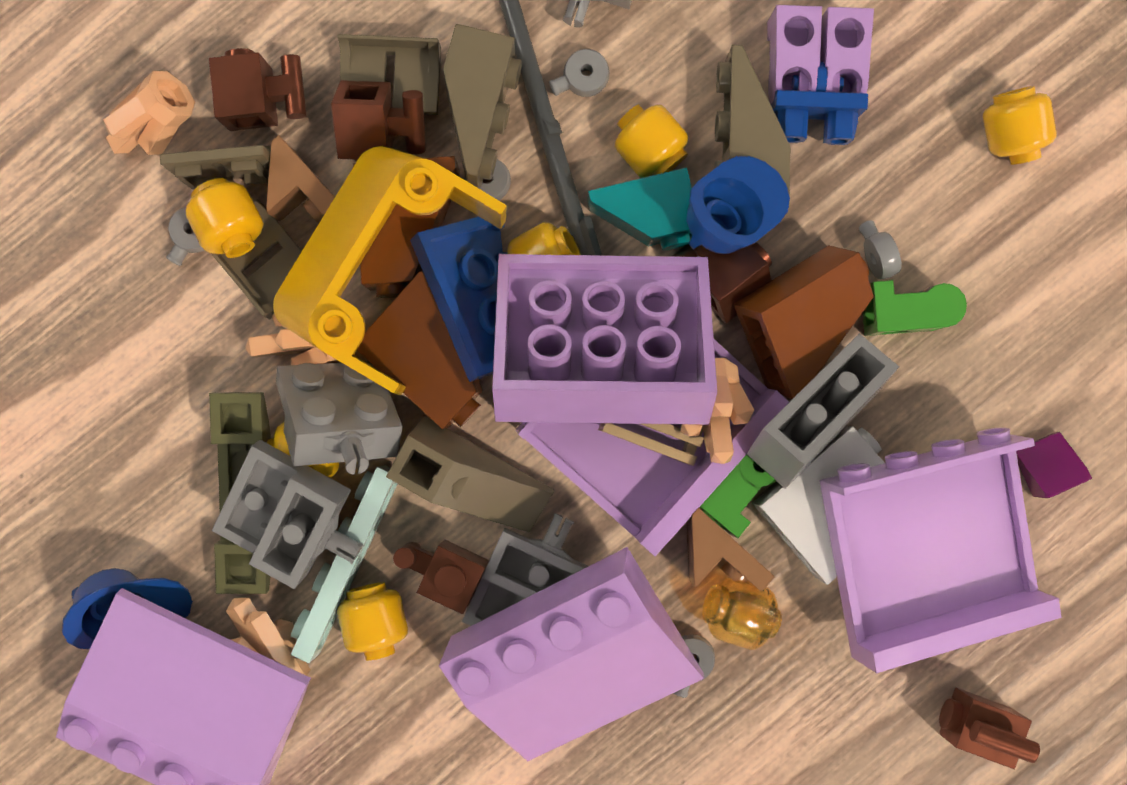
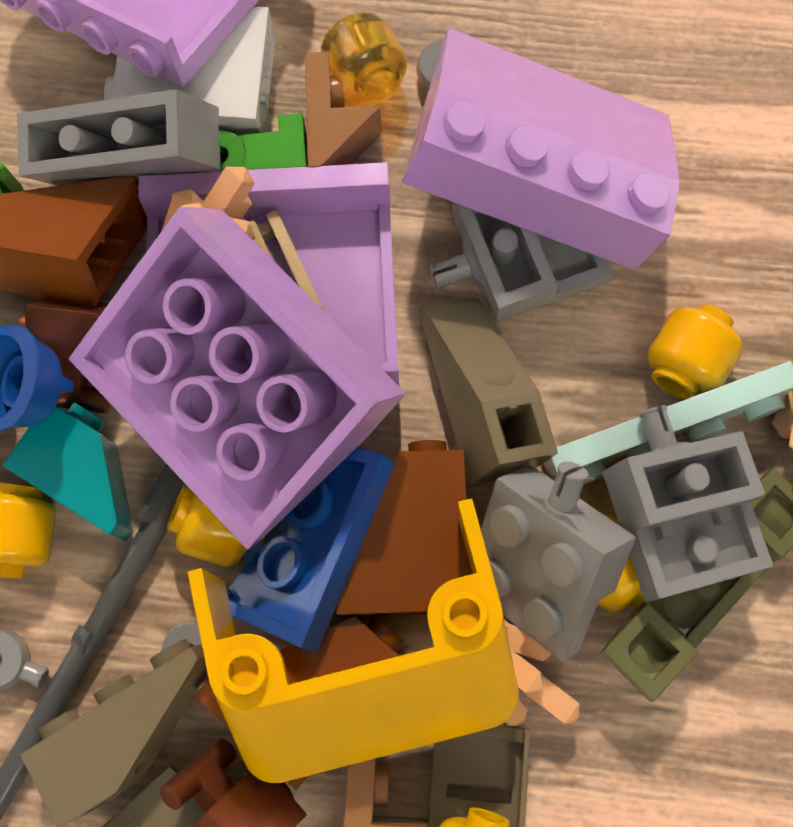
camera: 130 degrees left, 10 degrees down
(448, 574) = (585, 324): copper brick -> none

